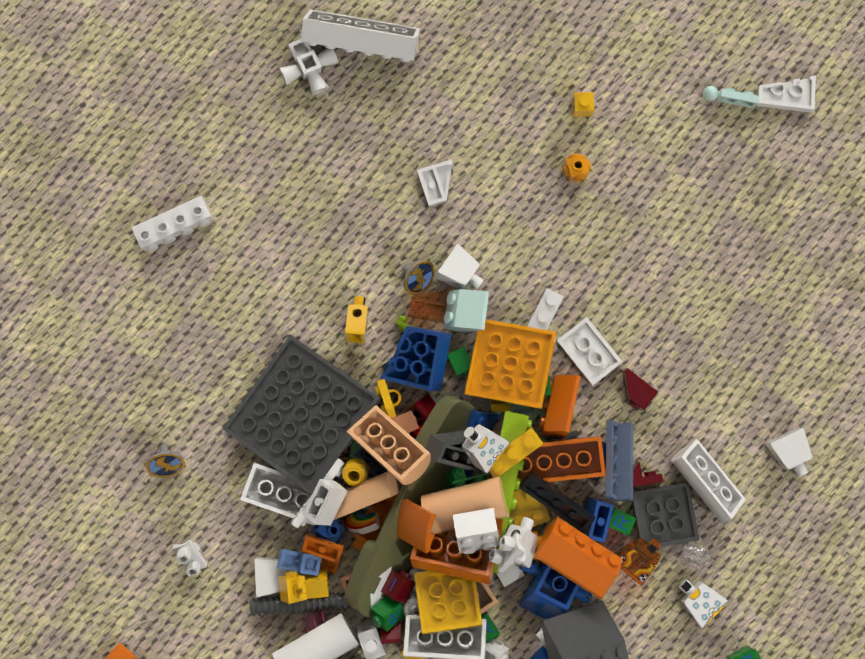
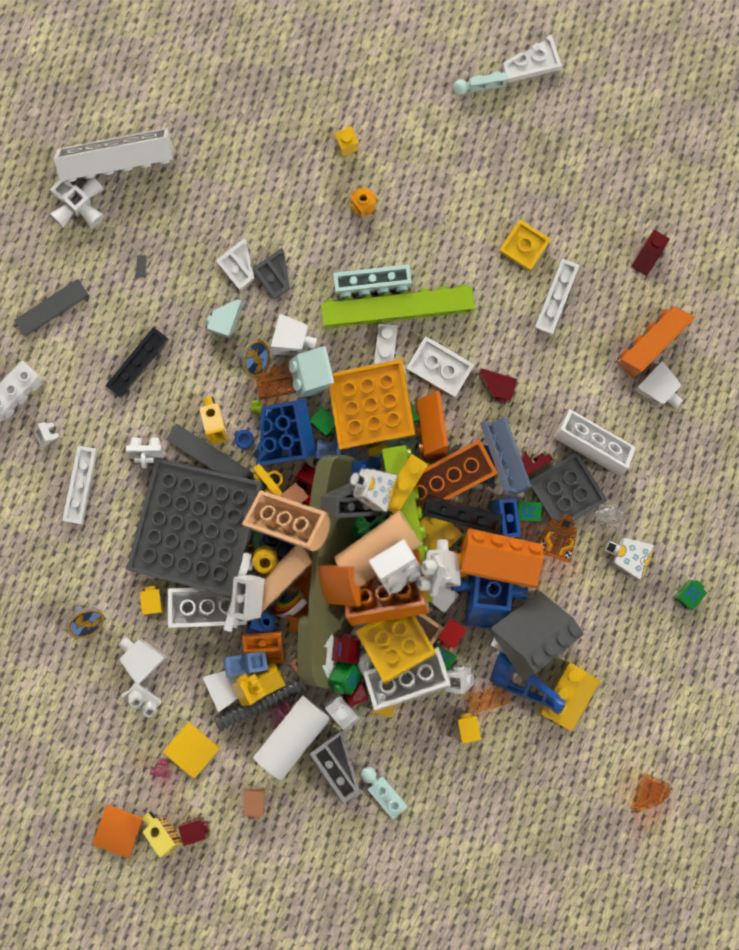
camera: 20 degrees left, 0 degrees up
(182, 631) = (161, 769): none -> clear pink tile
(194, 271) = (43, 435): none -> white tile
(203, 517) = (140, 658): none -> white torso
(209, 332) = (80, 485): none -> white plate
(217, 622) = (191, 749): none -> yellow slope
(234, 467) = (151, 600): none -> yellow brick
(247, 155) = (51, 307): none -> dark grey tile
(280, 326) = (144, 453): none -> white hips
(306, 237) = (137, 362): none -> black plate
(339, 349) = (206, 453): none -> dark grey beam
(345, 148) = (141, 266): none -> dark grey piece
(379, 348) = (244, 439): none -> blue tile
(404, 228) = (224, 319): none -> light aqua slope
(455, 388) = (331, 448): none -> medium blue slope
(466, 203) = (274, 274): none -> dark grey wing
(503, 611) = (451, 634): none -> red brick
(556, 245) = (372, 281): none -> light aqua brick
(571, 279) = (397, 307): none -> lime brick
(713, 266) = (524, 245): none -> yellow plate
(725, 327) = (556, 297): none -> white plate
(804, 405) = (656, 339): none -> orange slope
(831, 319) = (650, 252): none -> dark red slope

